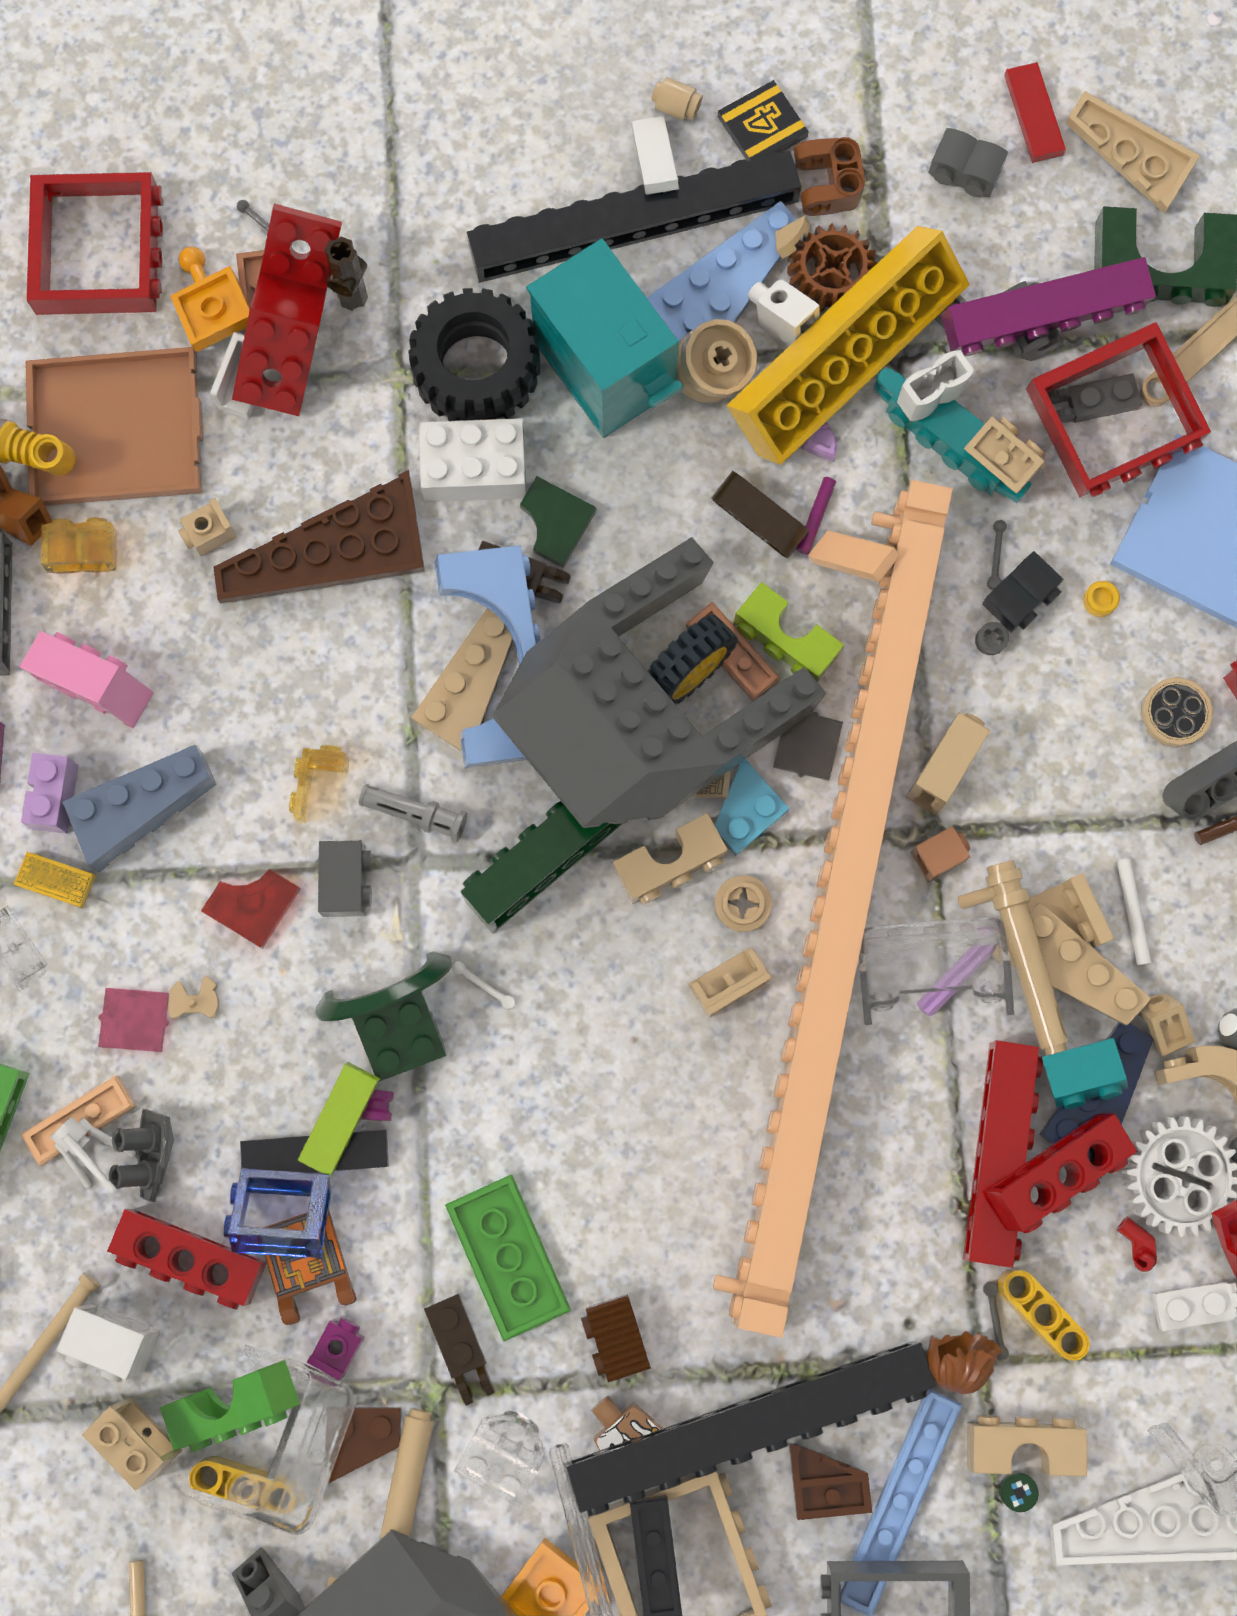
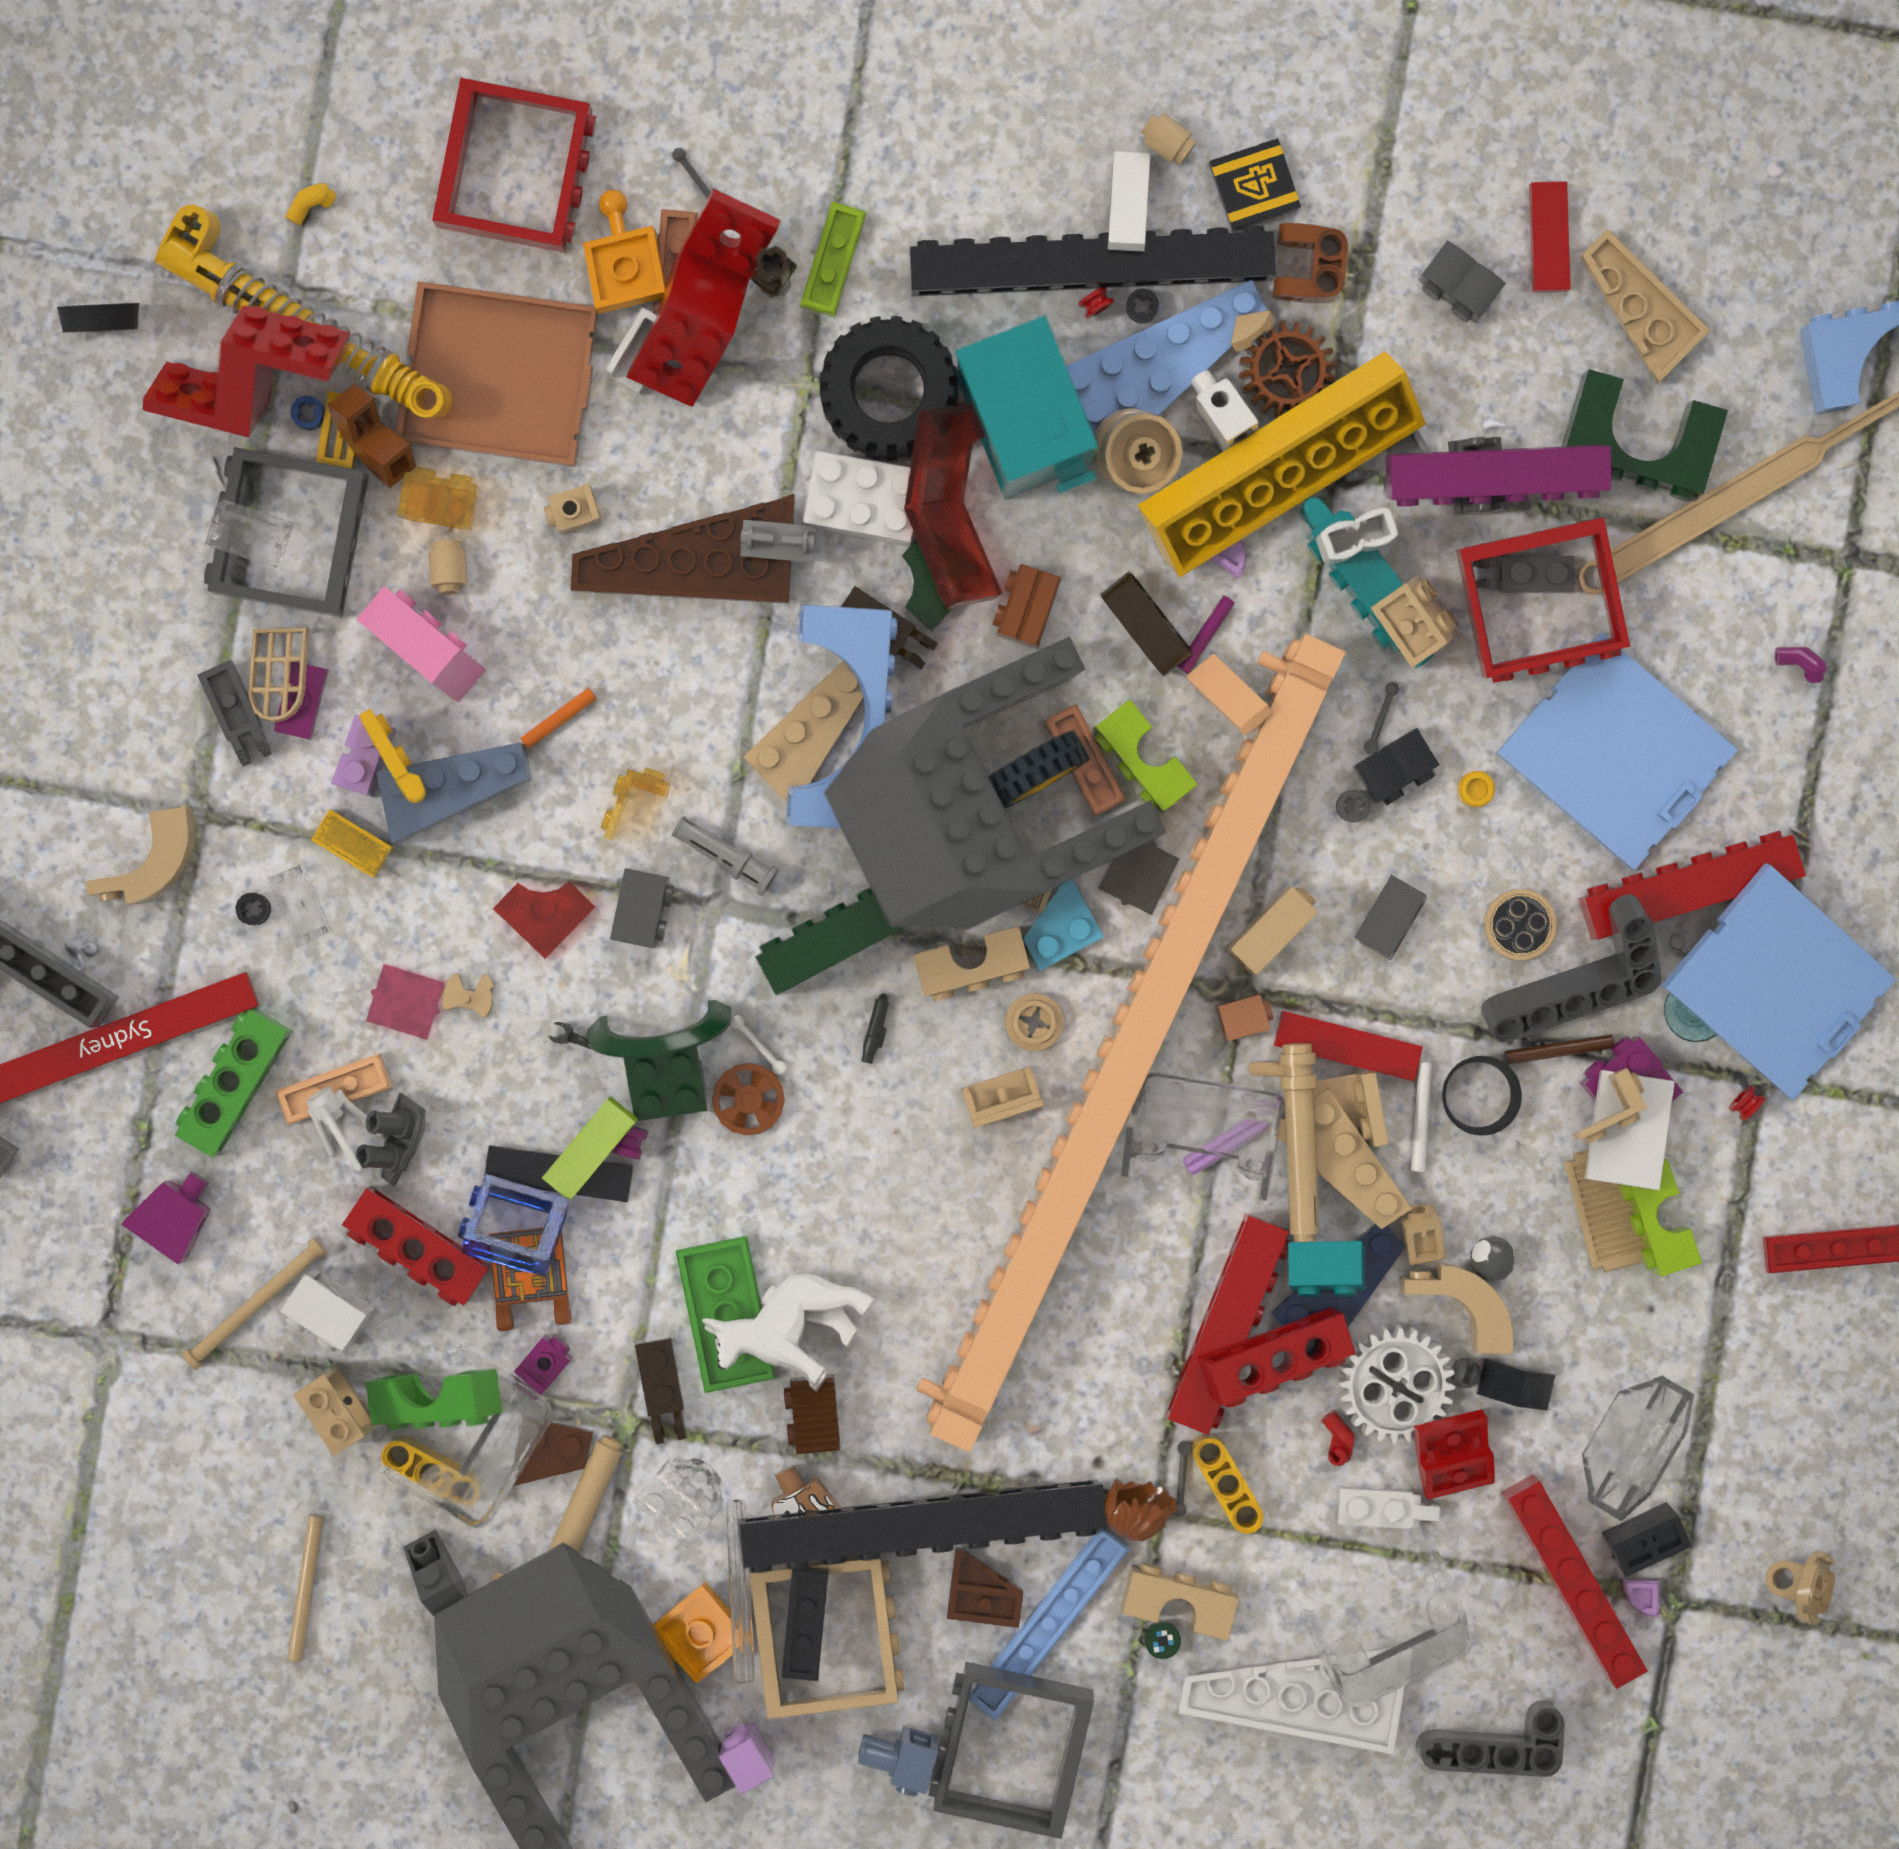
camera: 15 degrees right, 10 degrees up
(74, 781) = (394, 758): none -> yellow hinge
(99, 604) = (447, 567): none -> tan brick
(230, 721) = (558, 718): none -> orange piece
(302, 1018) = (570, 1036): none -> pearl dark grey hand
(400, 265) = (833, 259): none -> lime tile
(401, 512) = (778, 541): none -> light grey hinge
(484, 1039) = (748, 1099): none -> dark orange piece
(539, 440) = (938, 508): none -> clear red windscreen
(564, 1253) = (781, 1323): none -> white animal
(593, 947) = (876, 1032): none -> pearl dark grey piece
(645, 248) = (1096, 302): none -> red bush
(647, 522) = (1028, 605): none -> dark orange brick
(685, 235) = (1142, 317): none -> black bush
(1049, 859) = (1350, 1045): none -> red tile
(1055, 730) = (1391, 917): none -> dark grey hinge
(1213, 860) = (1514, 1104): none -> black tyre

